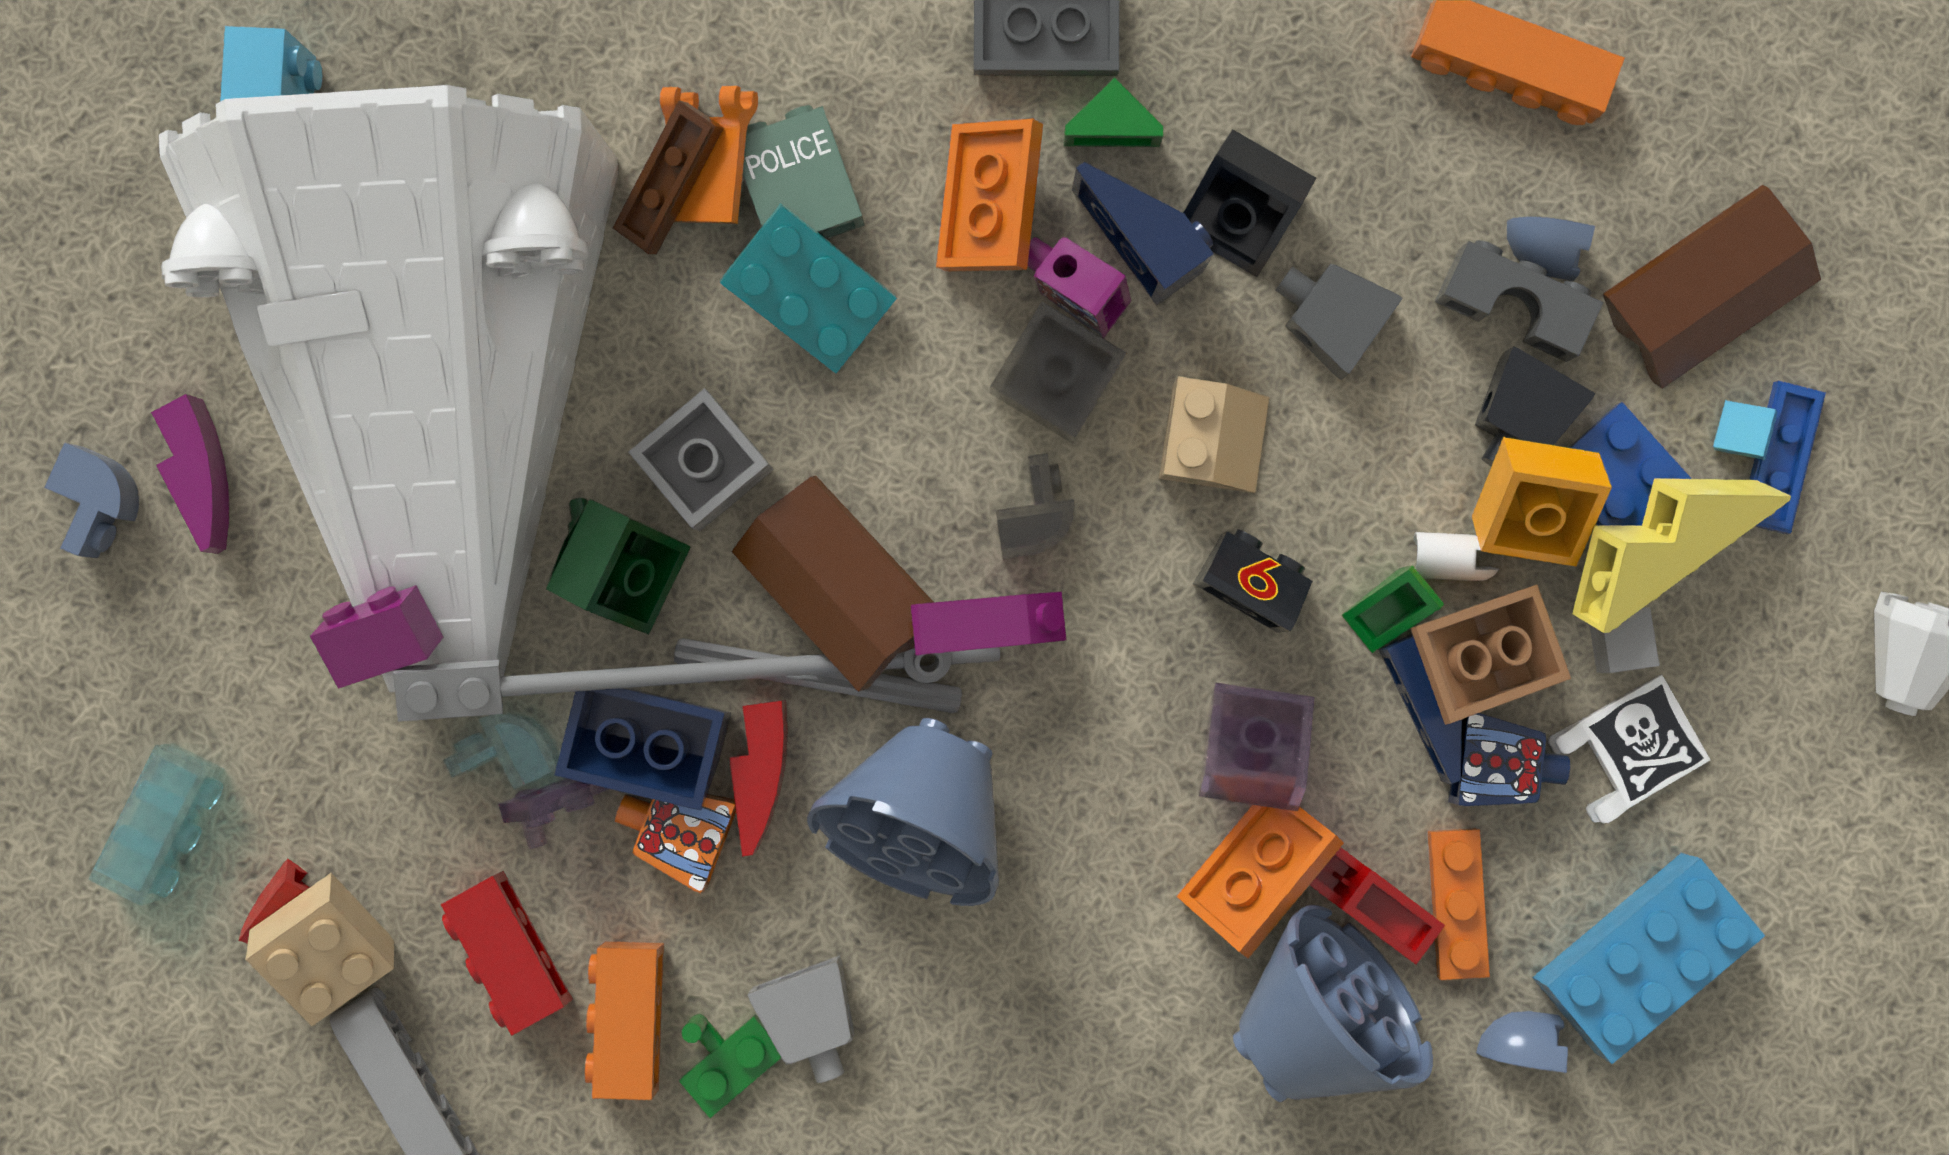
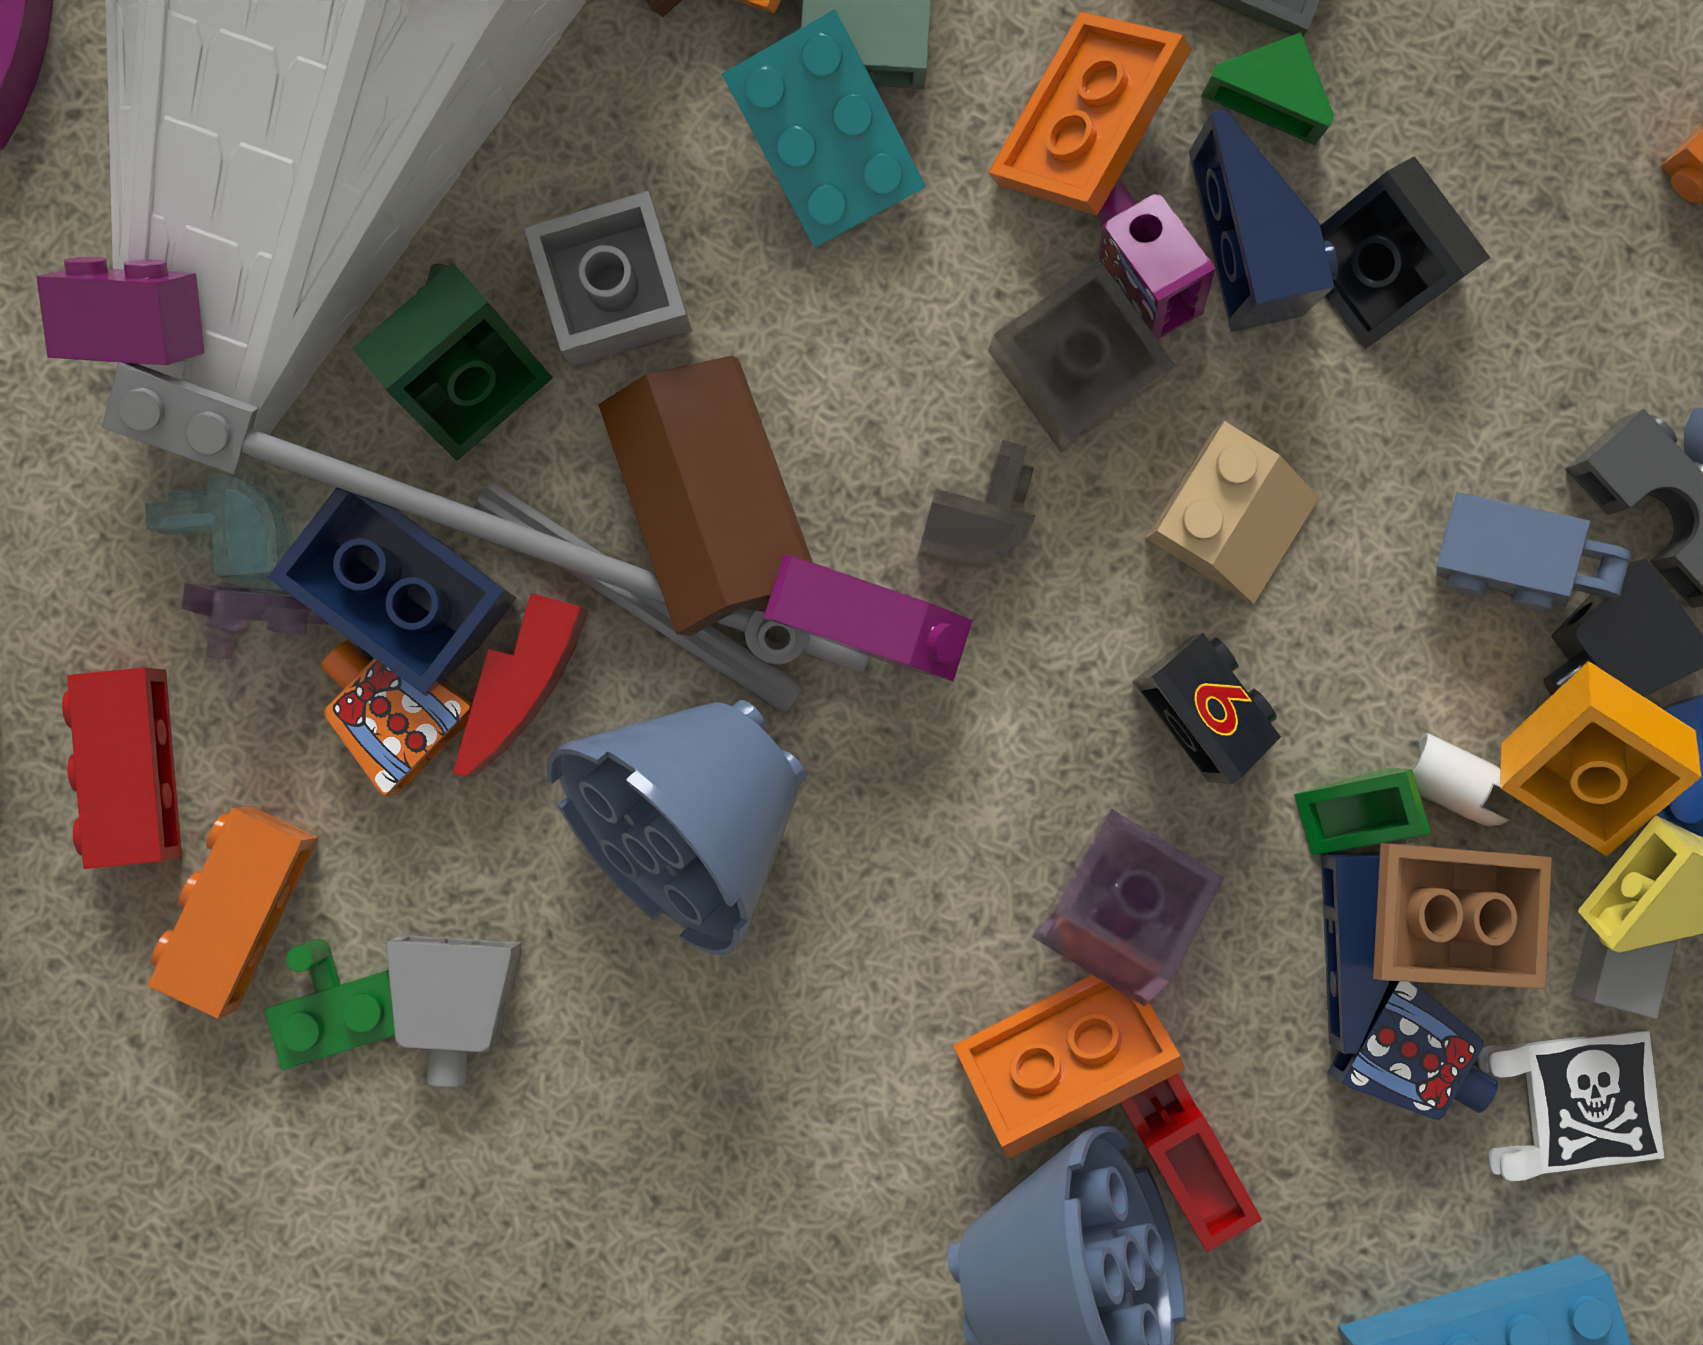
camera: 15 degrees right, 0 degrees up
(1337, 314) = (1444, 432): dark grey torso -> none
(1428, 378) = (1524, 554): none -> sand blue brick
(1459, 903) = (1288, 1200): orange plate -> none

